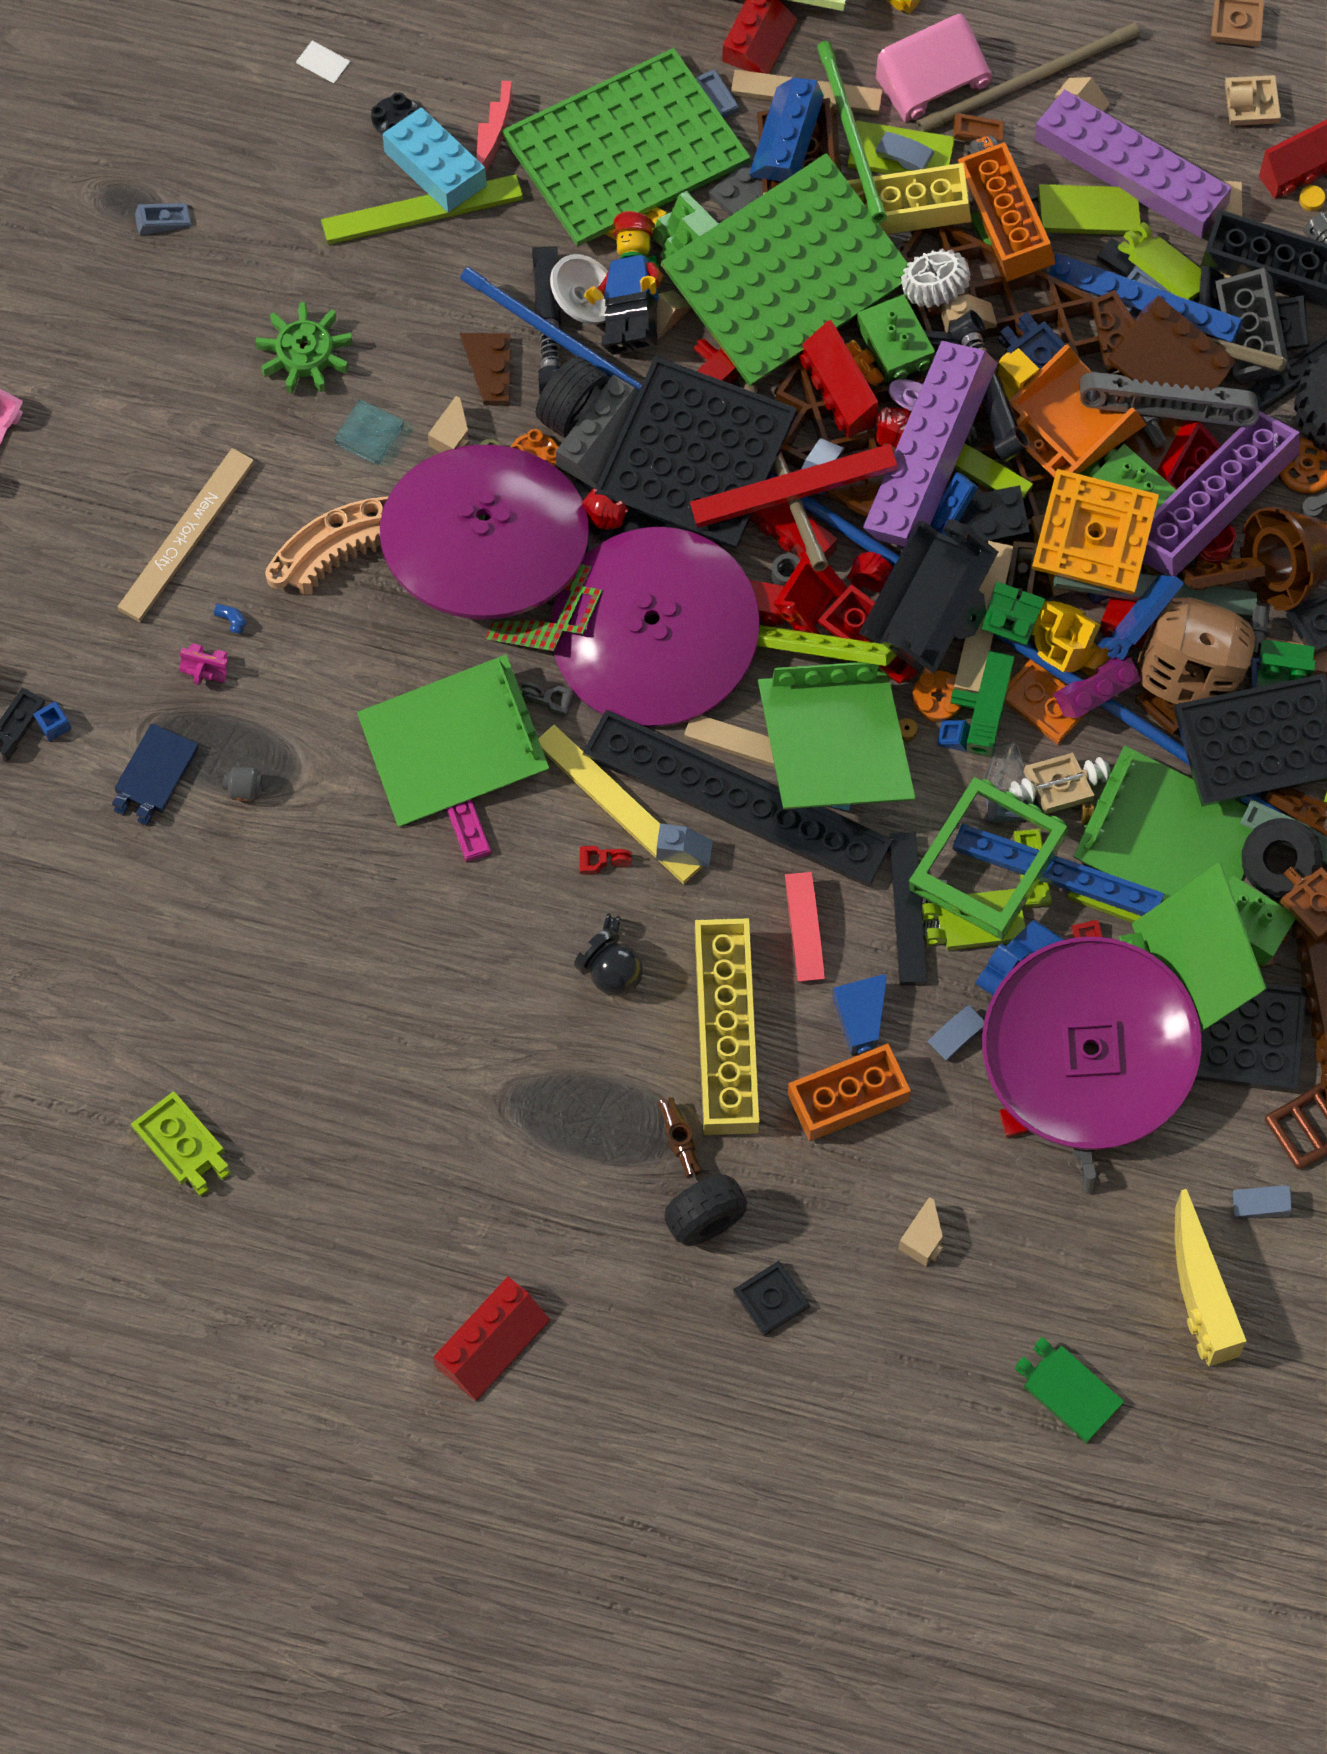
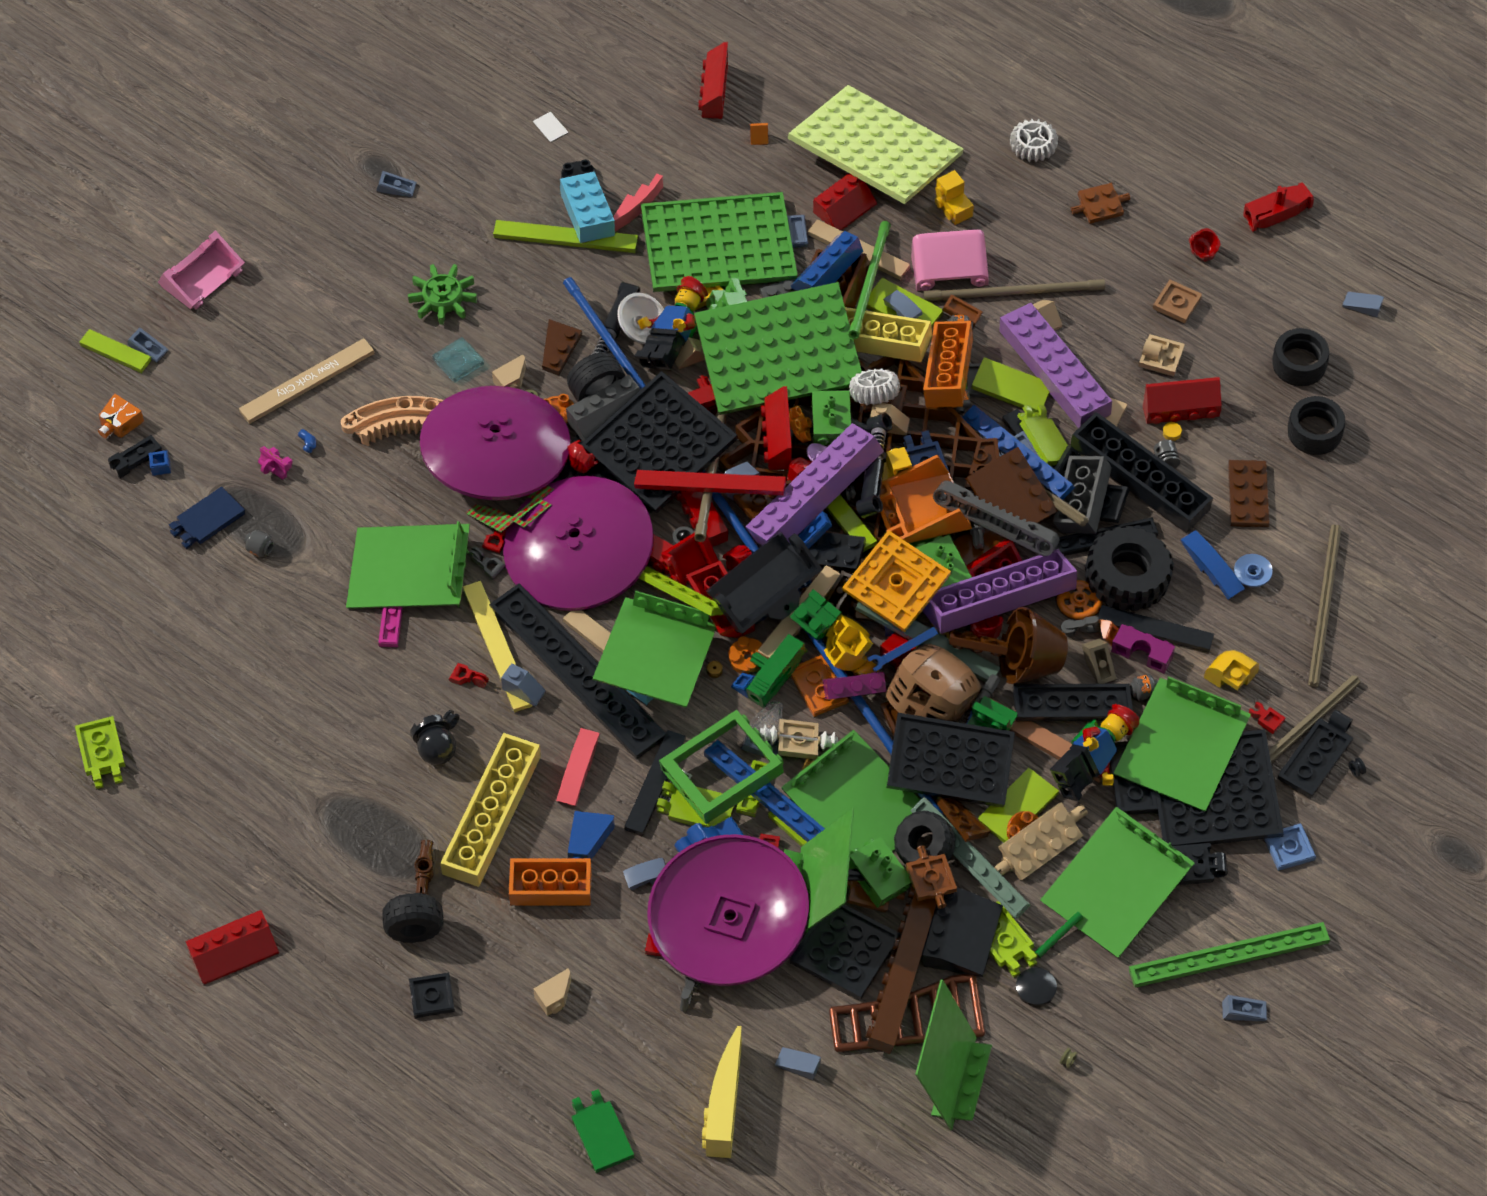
camera: 25 degrees right, 10 degrees down
(544, 672) = (493, 547): none -> red piece

